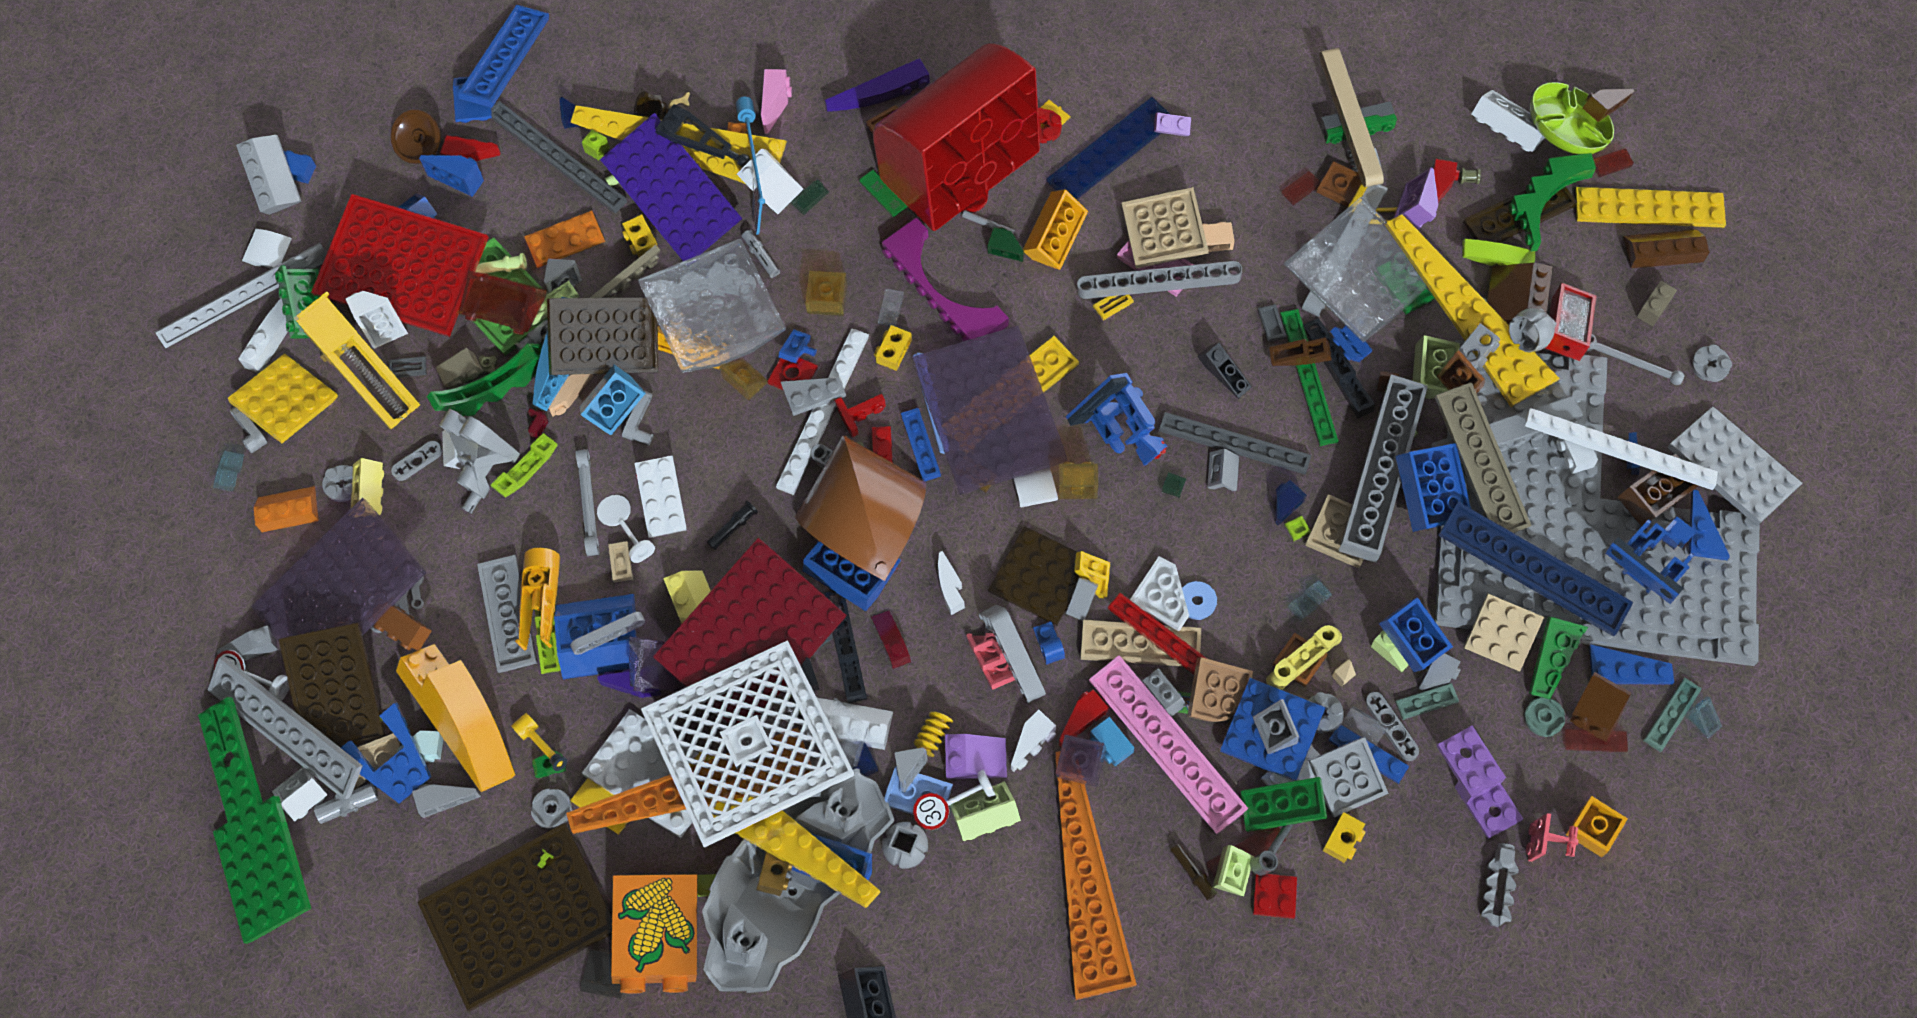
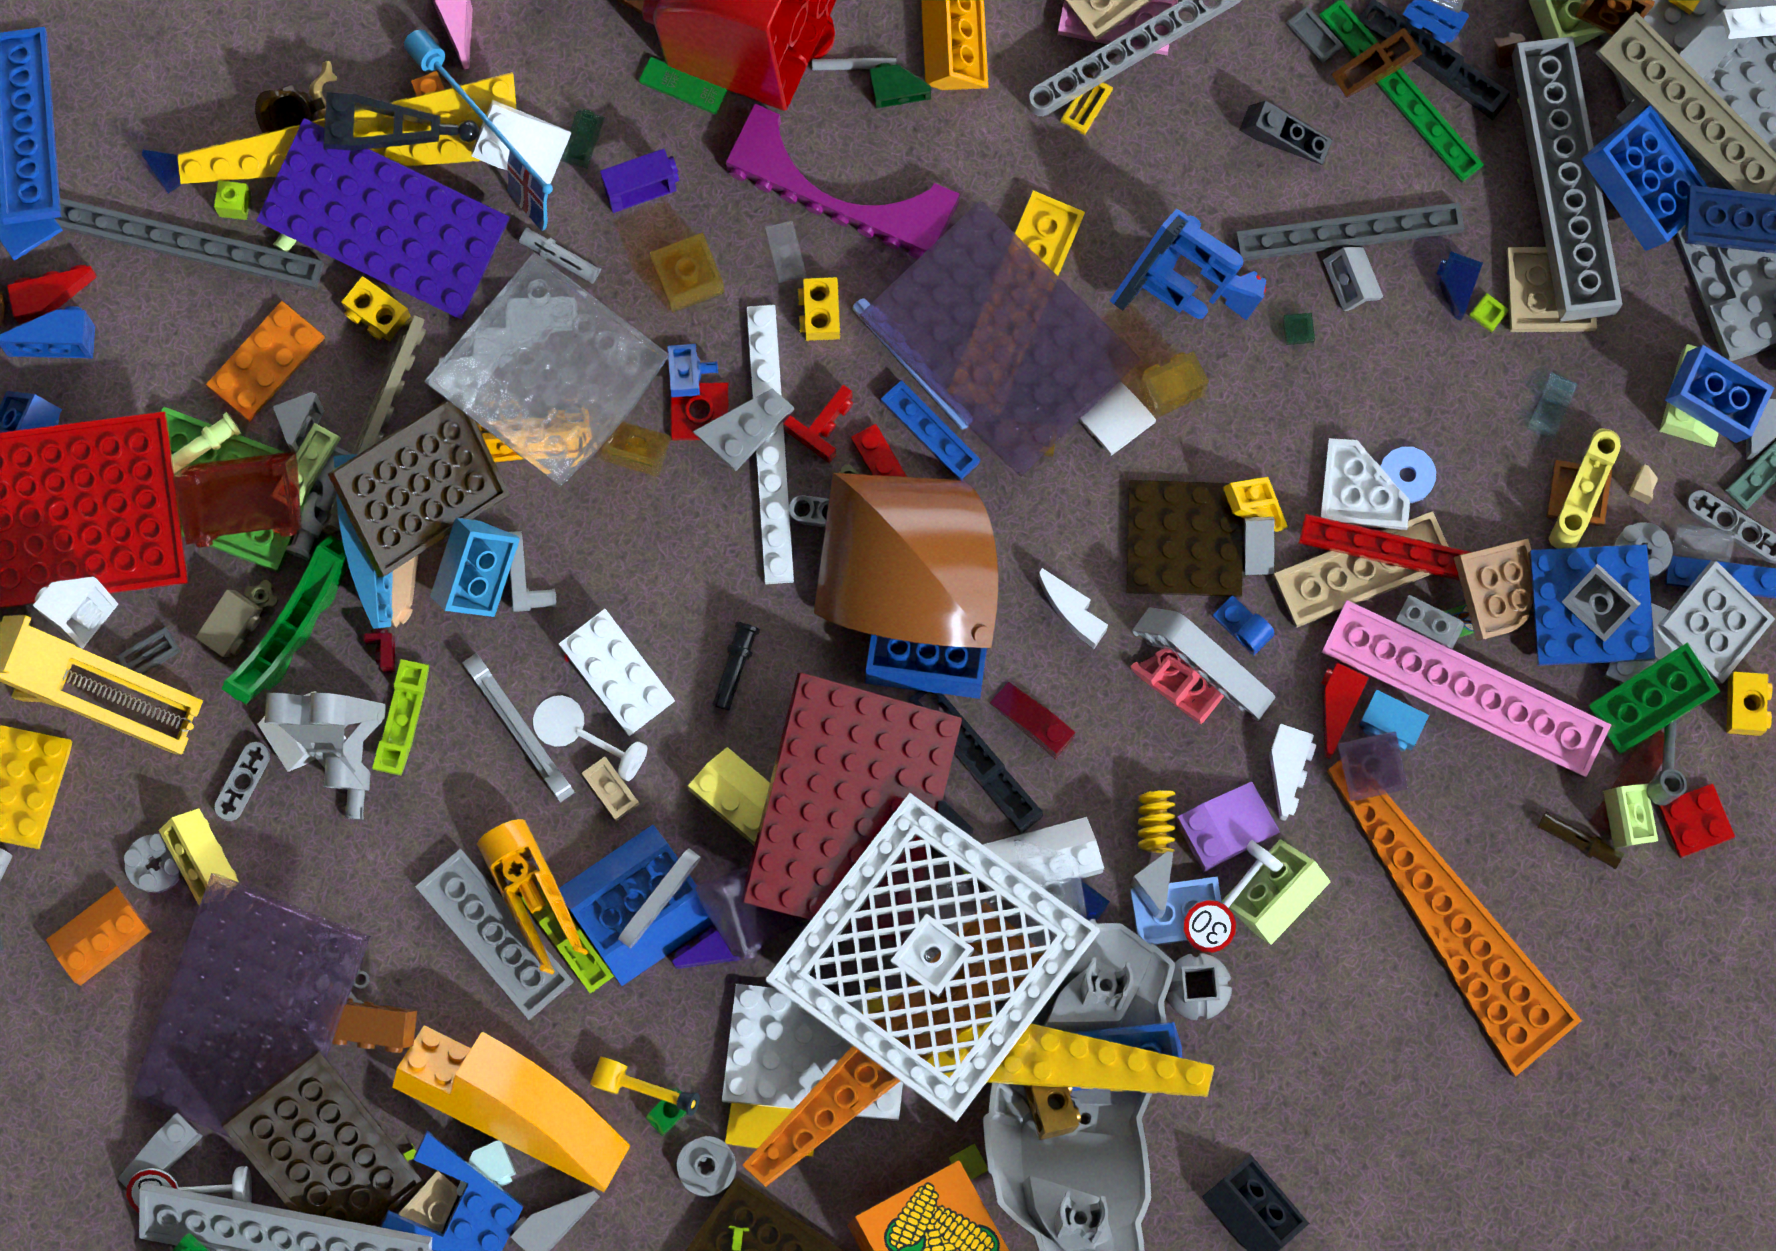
camera: 30 degrees left, 10 degrees up
(826, 230) = (639, 180): none -> dark purple window

